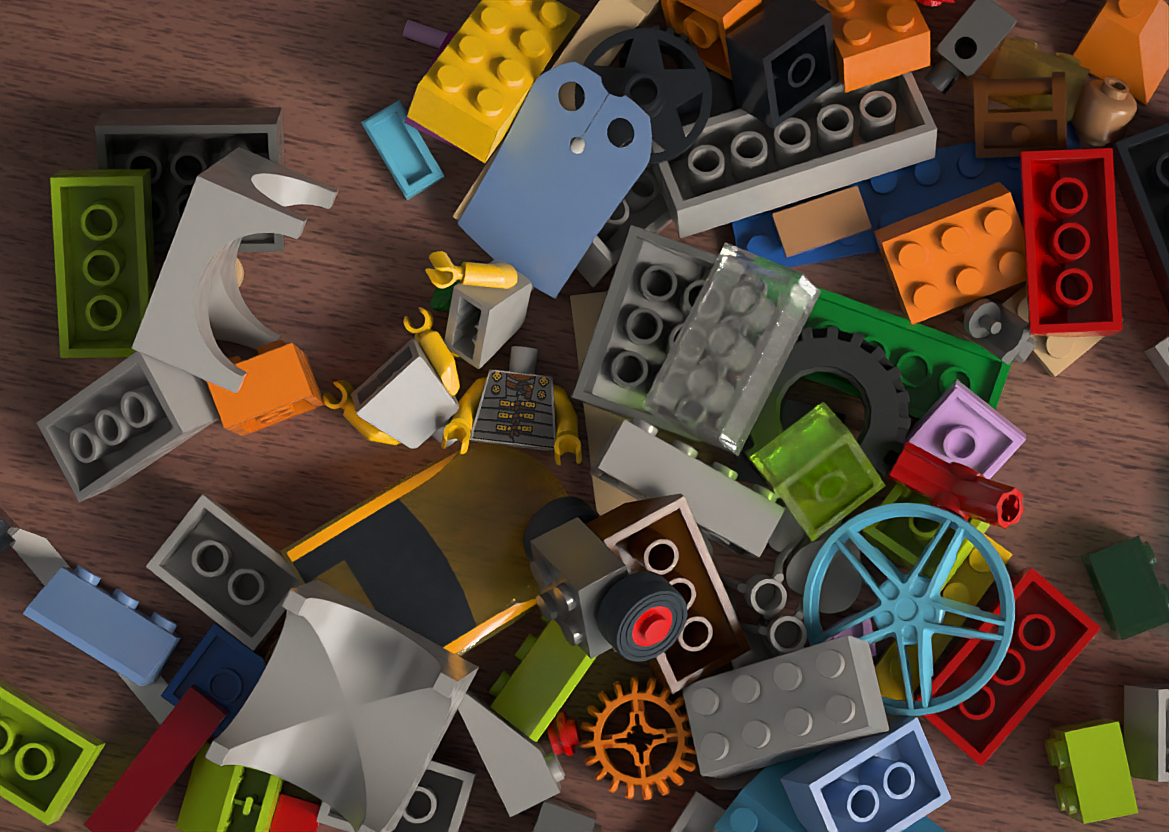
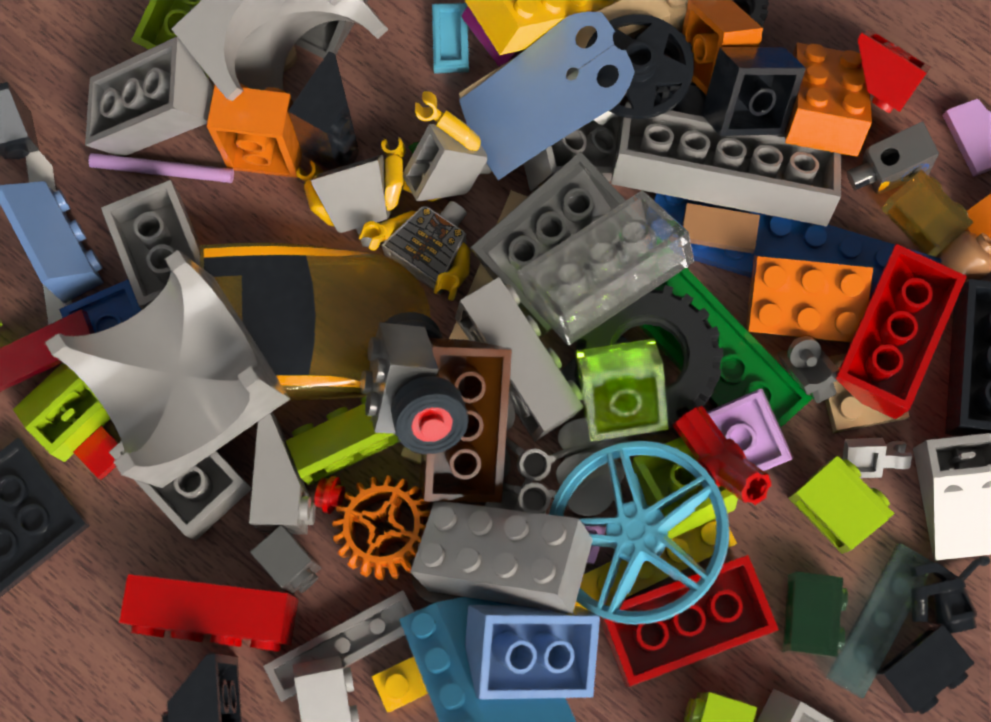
camera: 25 degrees right, 10 degrees down
(170, 476) = (161, 168): none -> lavender bar
(333, 335) = (324, 119): none -> black slope
(1019, 129) = (885, 229): reddish brown plate -> none
(1099, 459) = (842, 504): none -> lime slope
(1105, 386) = (873, 455): none -> light grey plate

